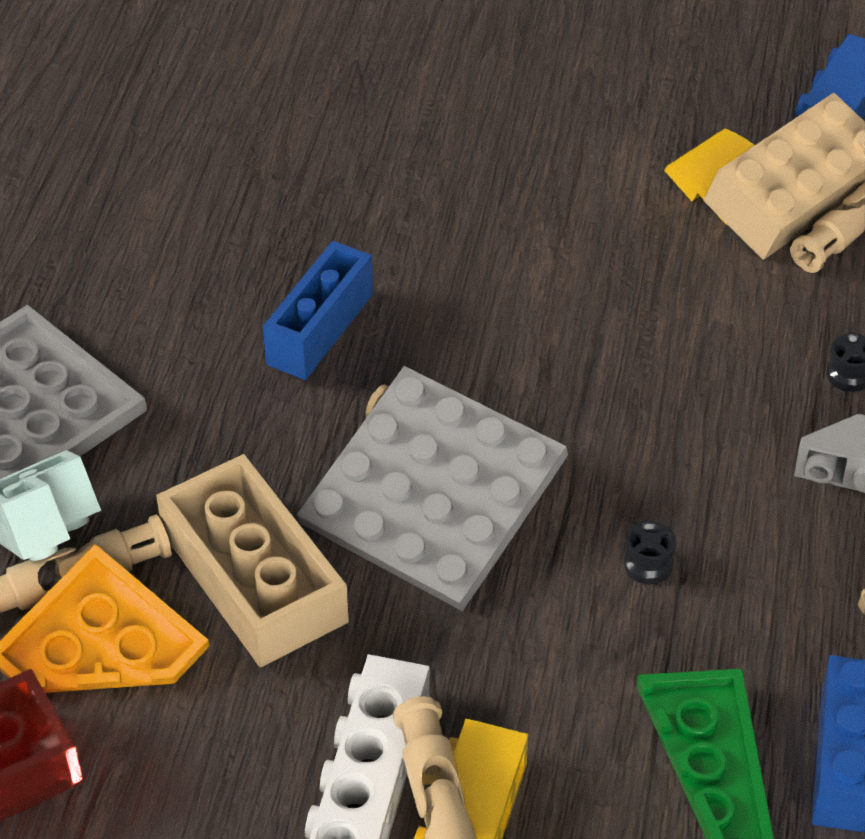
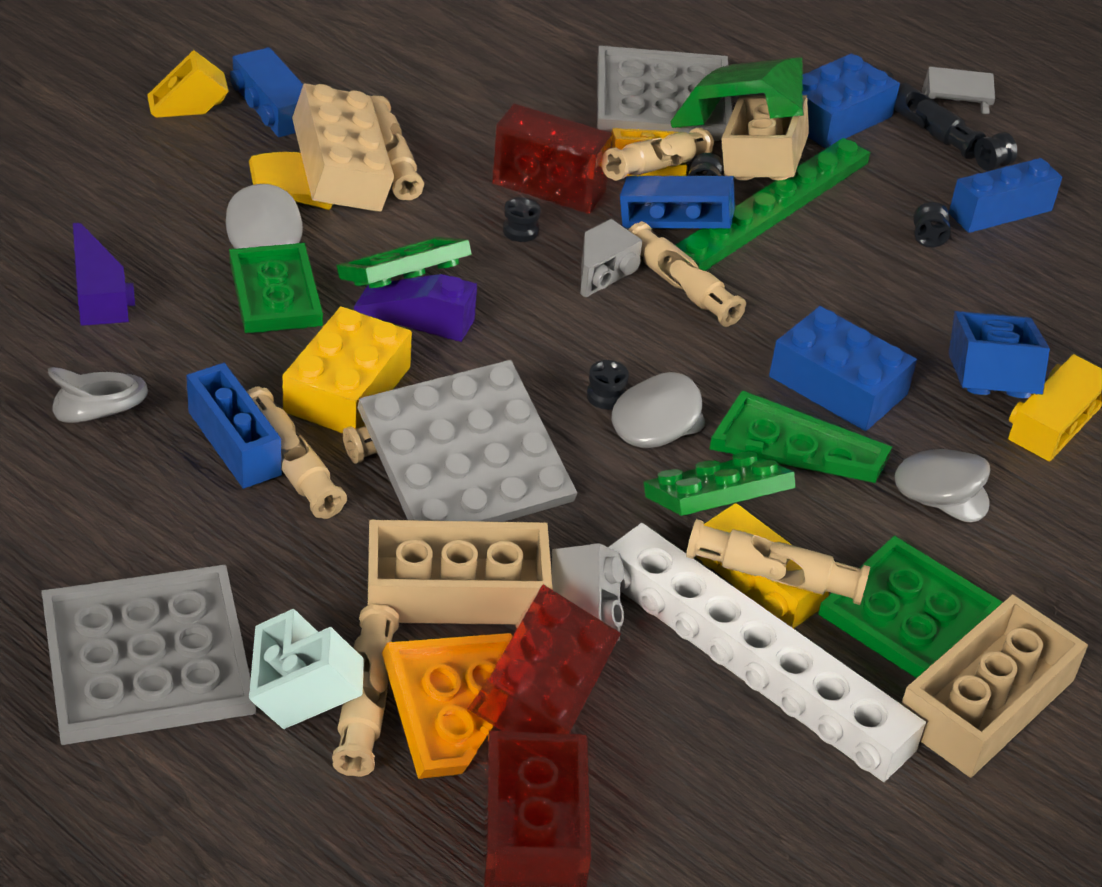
camera: 65 degrees left, 5 degrees down
(162, 683) = (545, 667): none -> clear red brick
(288, 205) = (95, 394): none -> light grey piece
(306, 673) = (590, 580): none -> light grey slope
(331, 369) = (300, 461): none -> tan piece
(440, 133) = (100, 282): none -> dark purple slope
(478, 344) = (343, 363): none -> yellow brick
(553, 244) = (275, 288): none -> green plate
(562, 712) = (718, 483): none -> green plate
(632, 358) = (426, 303): none -> dark purple slope
(634, 187) = (263, 217): none -> light grey piece
(647, 617) = (658, 411): none -> light grey piece
(671, 306) = (406, 260): none -> green plate
(782, 39) = (189, 89): none -> yellow slope

